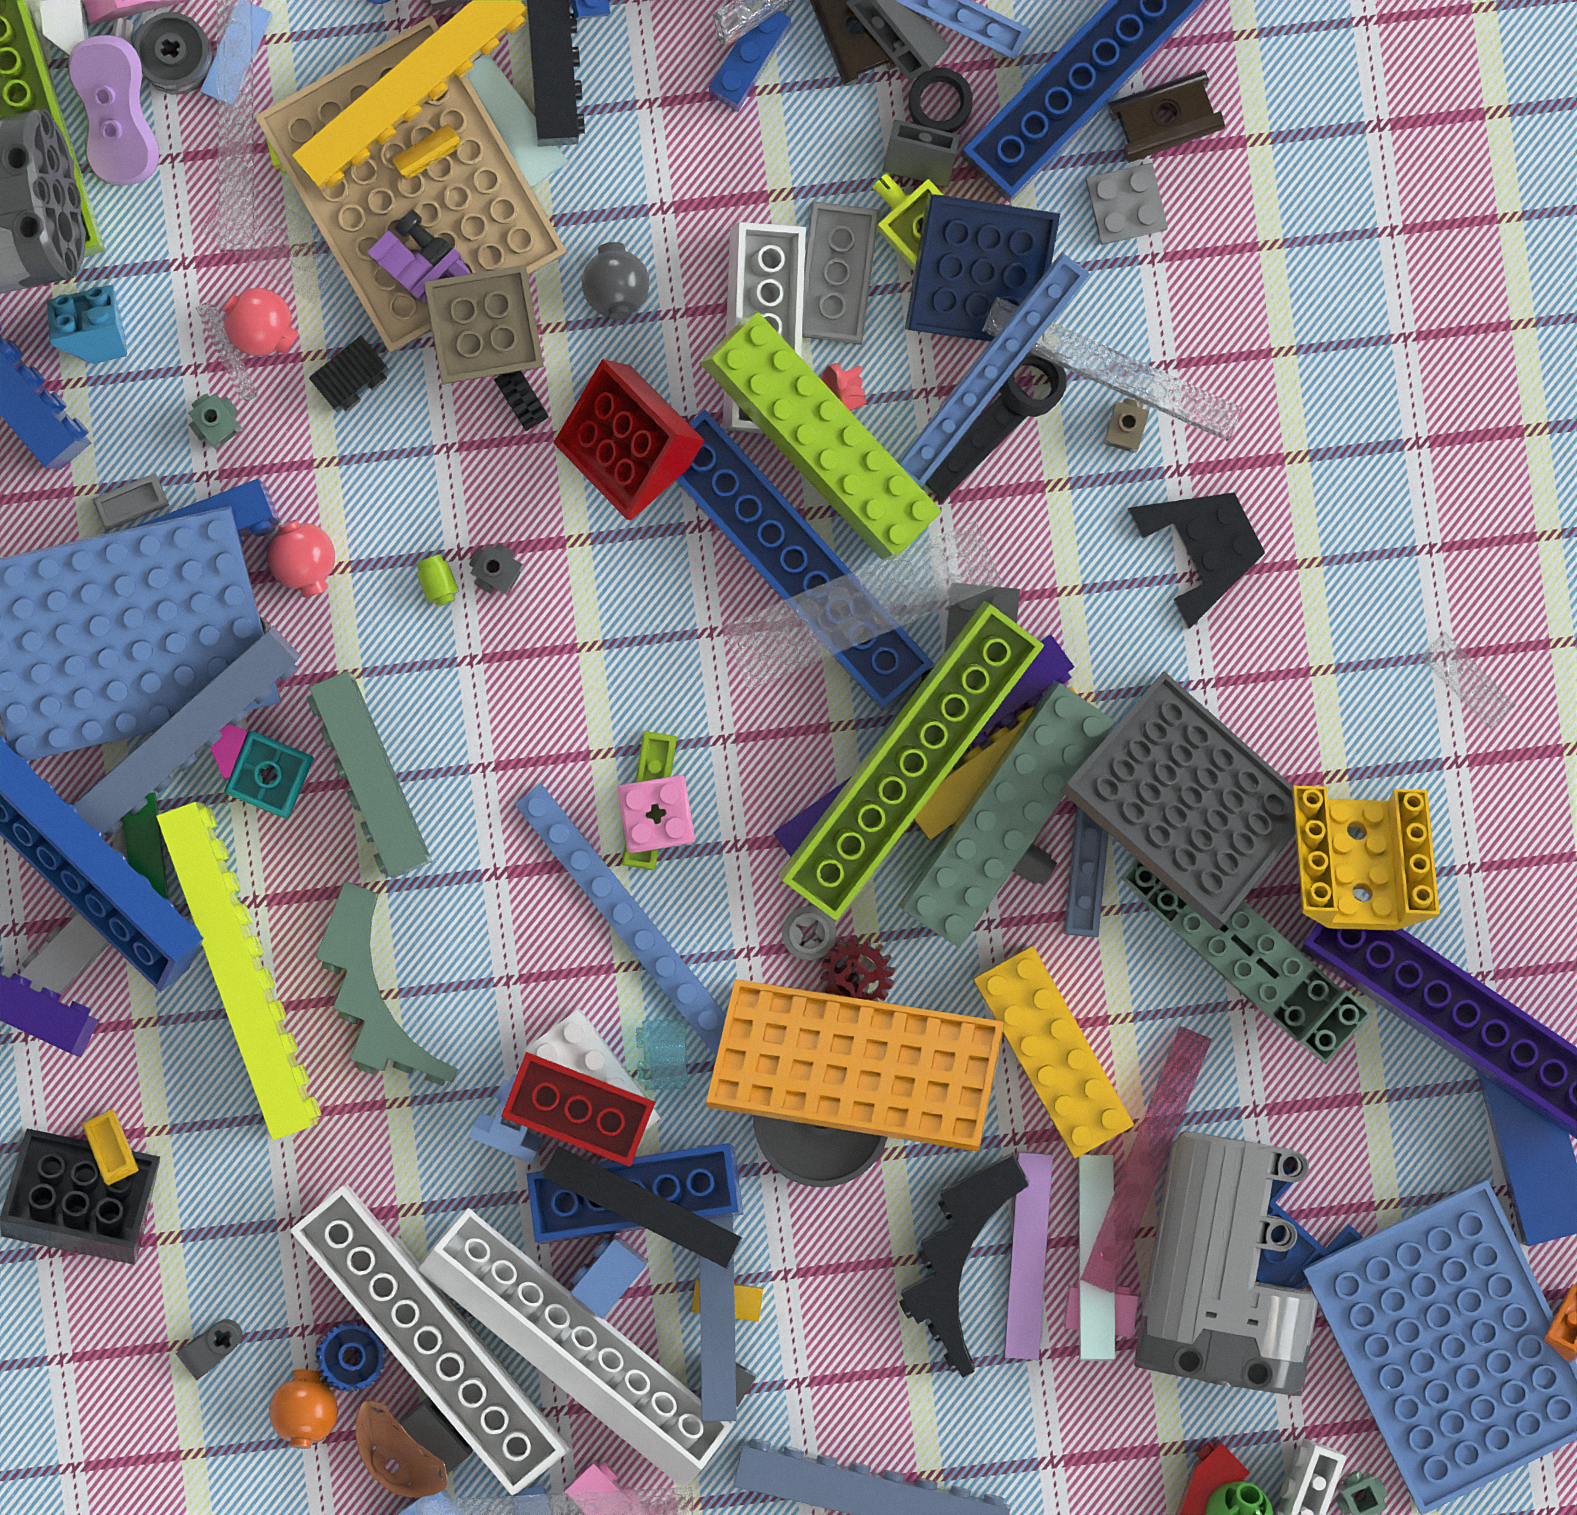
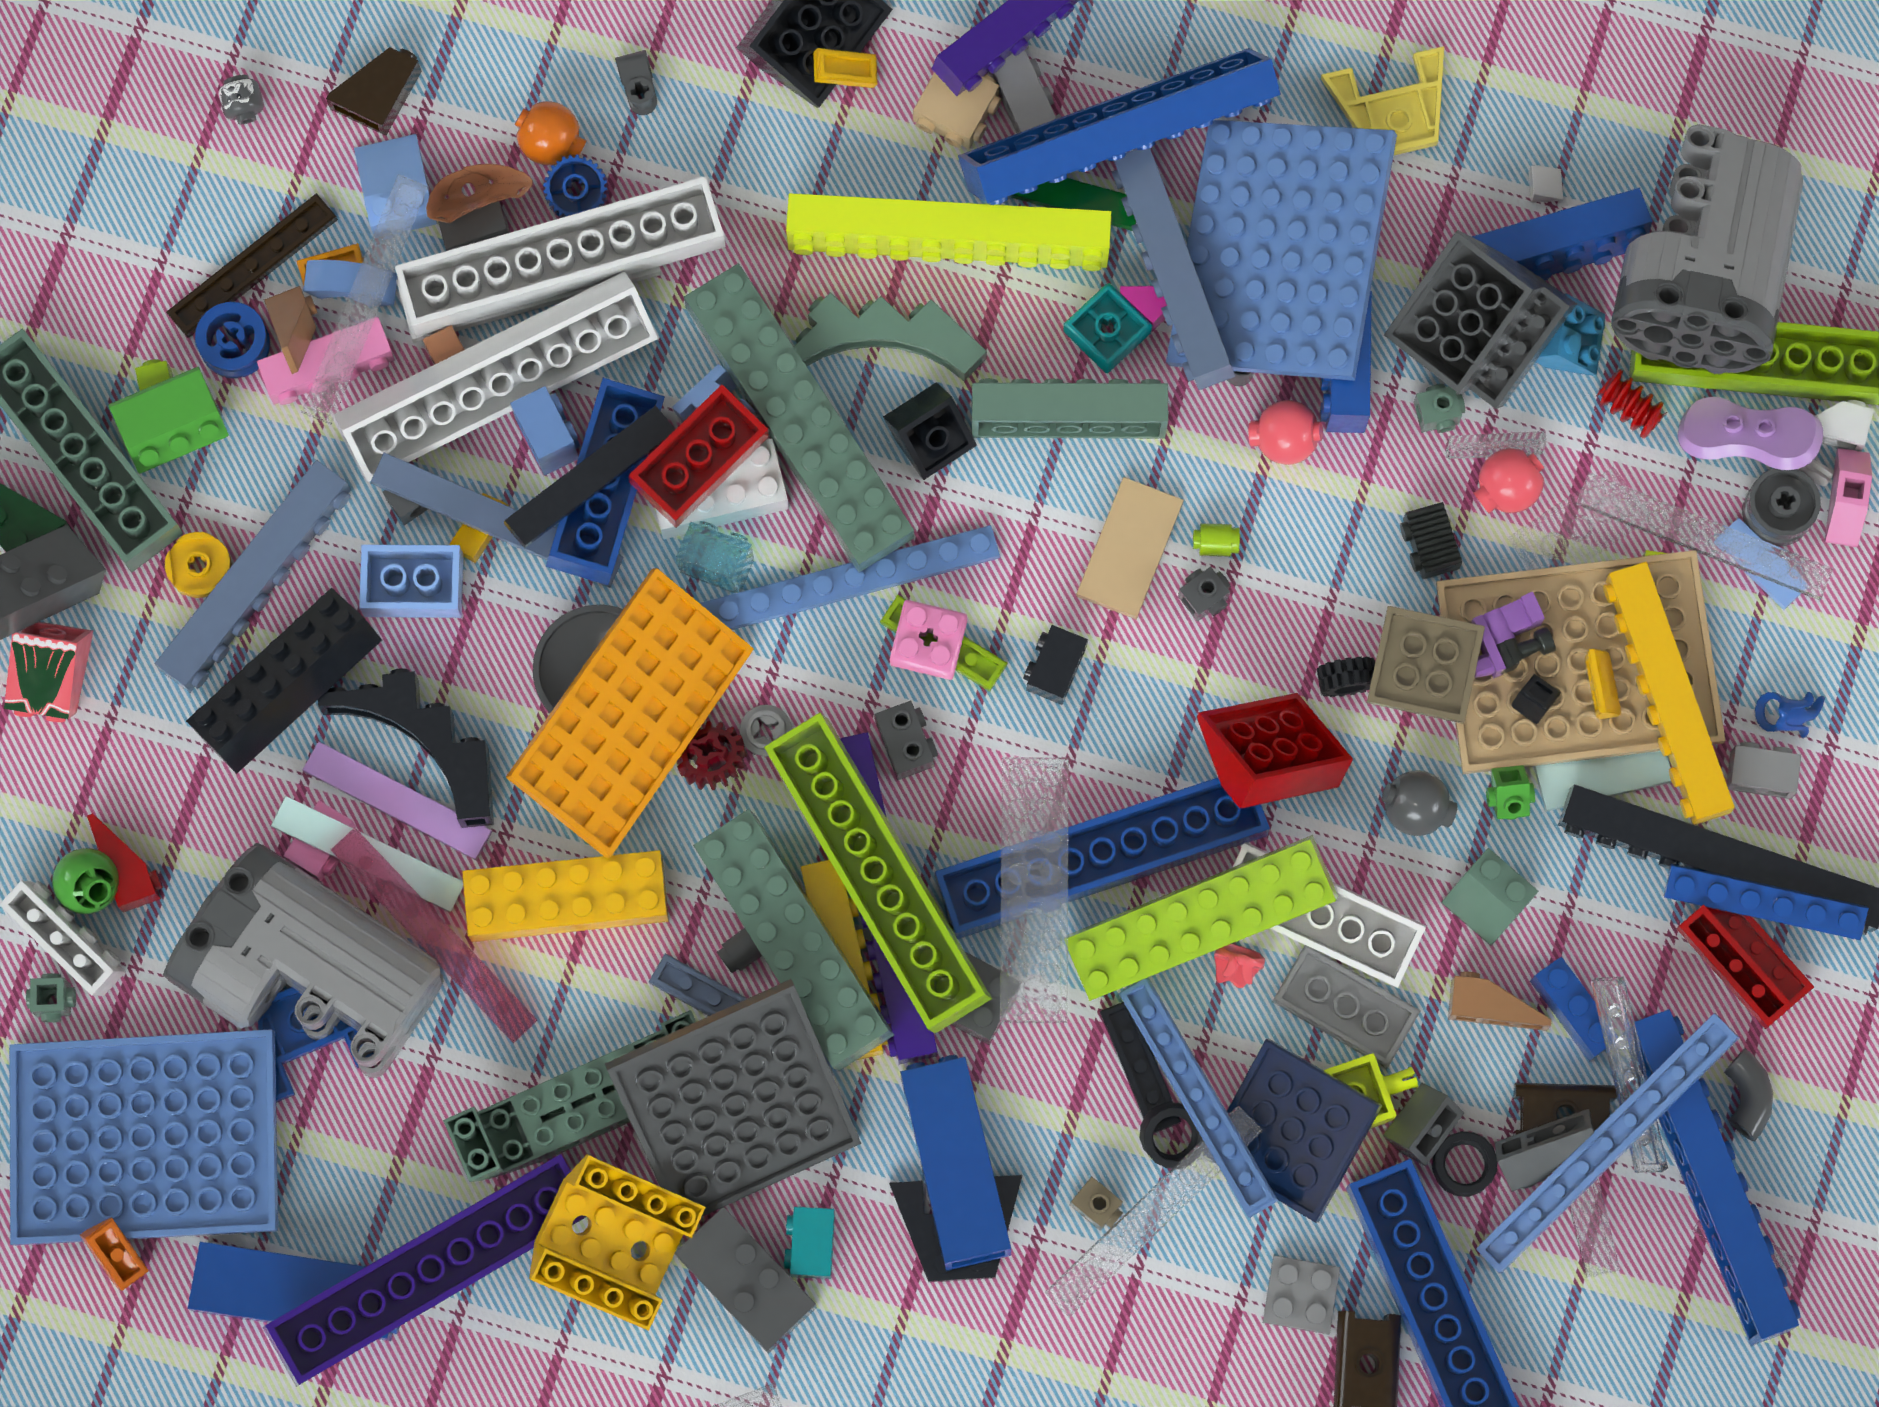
camera: 115 degrees right, 10 degrees down
(114, 413) = (1479, 320): none -> dark grey slope
(117, 1013) = (955, 117): none -> tan brick
(129, 237) = (1631, 404): none -> red piece
(130, 502) = (1393, 297): light grey tile -> none
(445, 903) = (930, 430): none -> black slope
(467, 210) = (1535, 699): none -> black slope
(478, 661) = (1129, 548): none -> tan tile
(491, 1034) = (799, 417): none -> sand green brick
(565, 1413) = (443, 344): none -> nougat brick
(568, 199) = (1510, 792): none -> bright green brick
(626, 683) = (1056, 664): none -> black brick
(676, 179) = (1489, 896): none -> sand green slope
(762, 794) = (905, 740): none -> dark grey brick
(779, 145) = (1487, 1003): none -> medium nougat slope
(812, 1338) = (411, 581): none -> light blue brick
(964, 1415) = (284, 680): none -> black brick
(1146, 573) = (955, 1162): none -> blue brick
(1278, 675) = (811, 1243): none -> teal brick
(1339, 721) = (745, 1280): none -> dark grey brick

